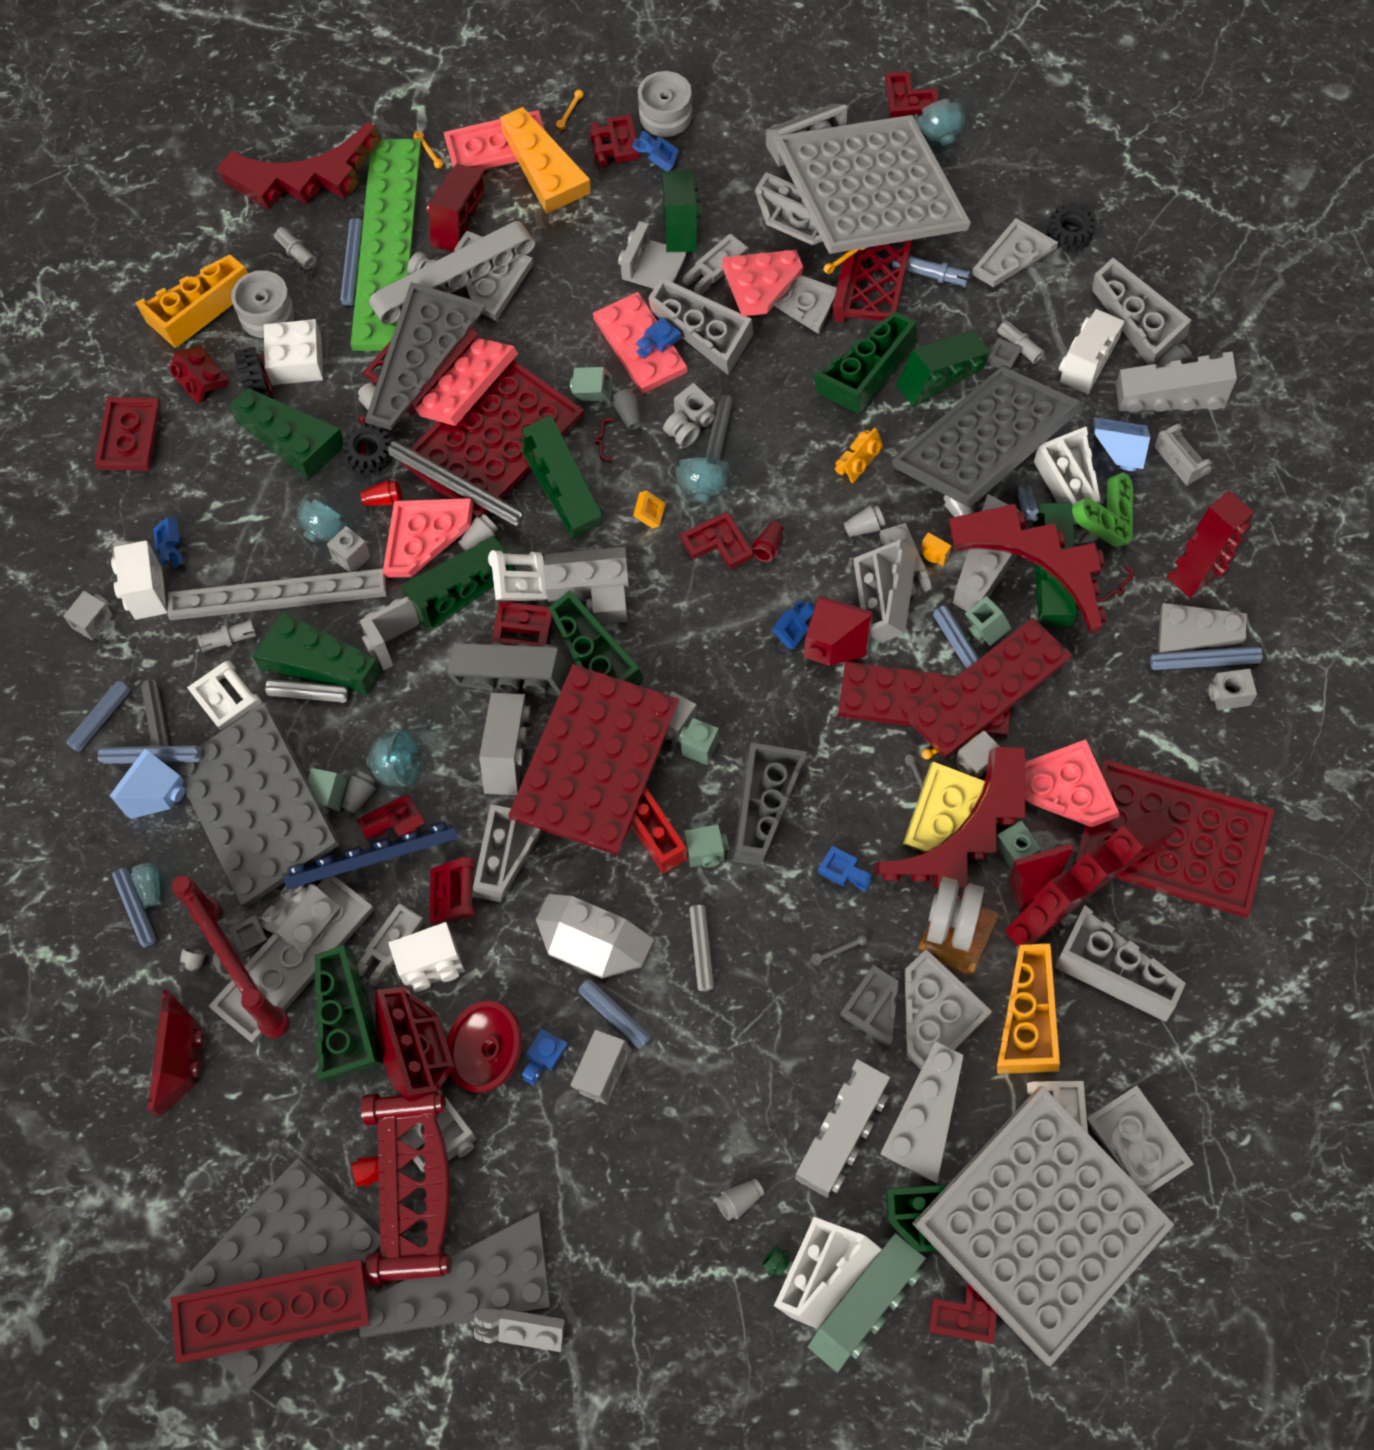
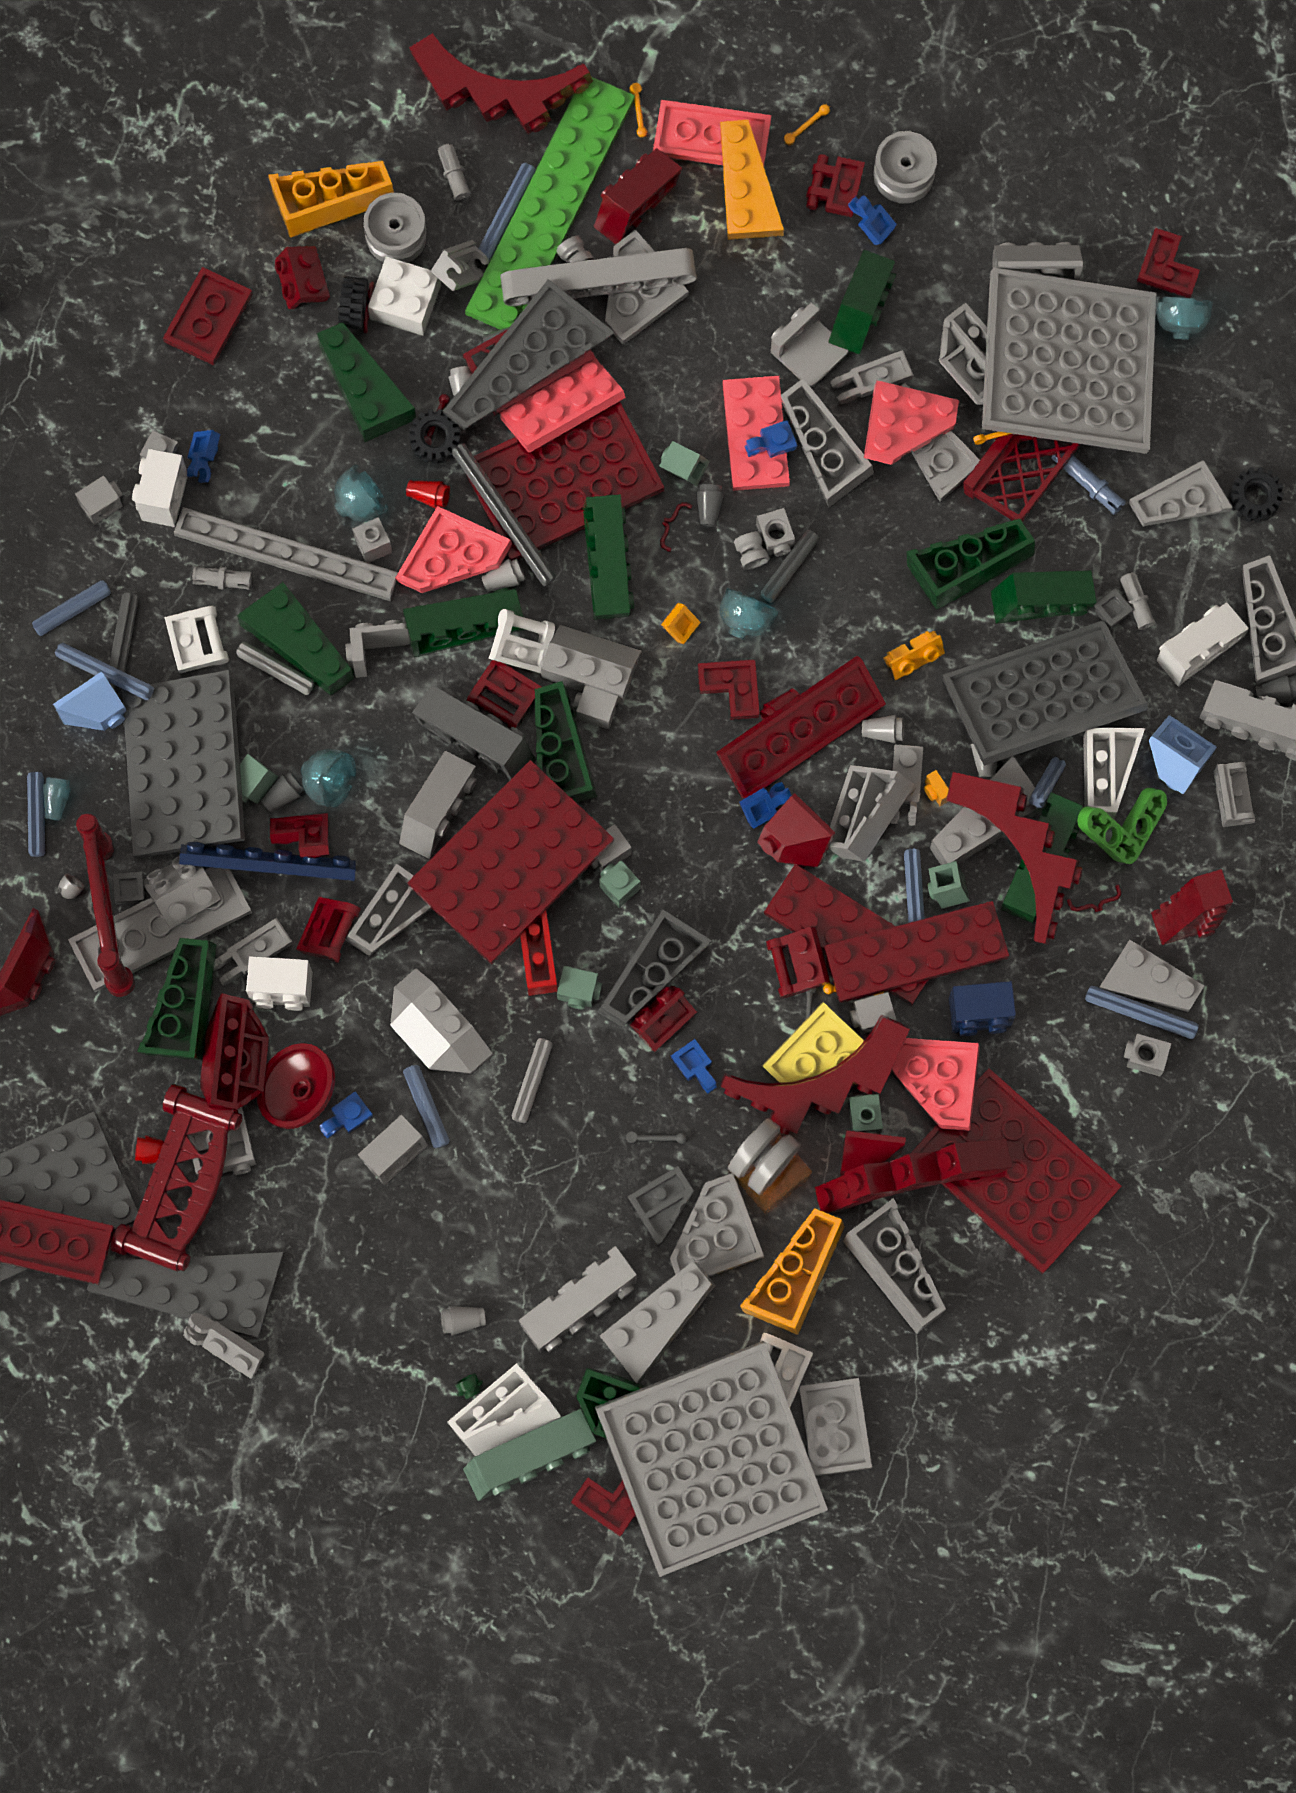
camera: 20 degrees right, 10 degrees up
(327, 307) = (457, 265): none -> light grey hinge
(794, 548) = (801, 727): none -> dark red plate
(795, 839) = (663, 1017): none -> dark red bracket
(896, 734) = (806, 960): none -> dark red plate
(1072, 708) = (982, 1008): none -> dark blue brick

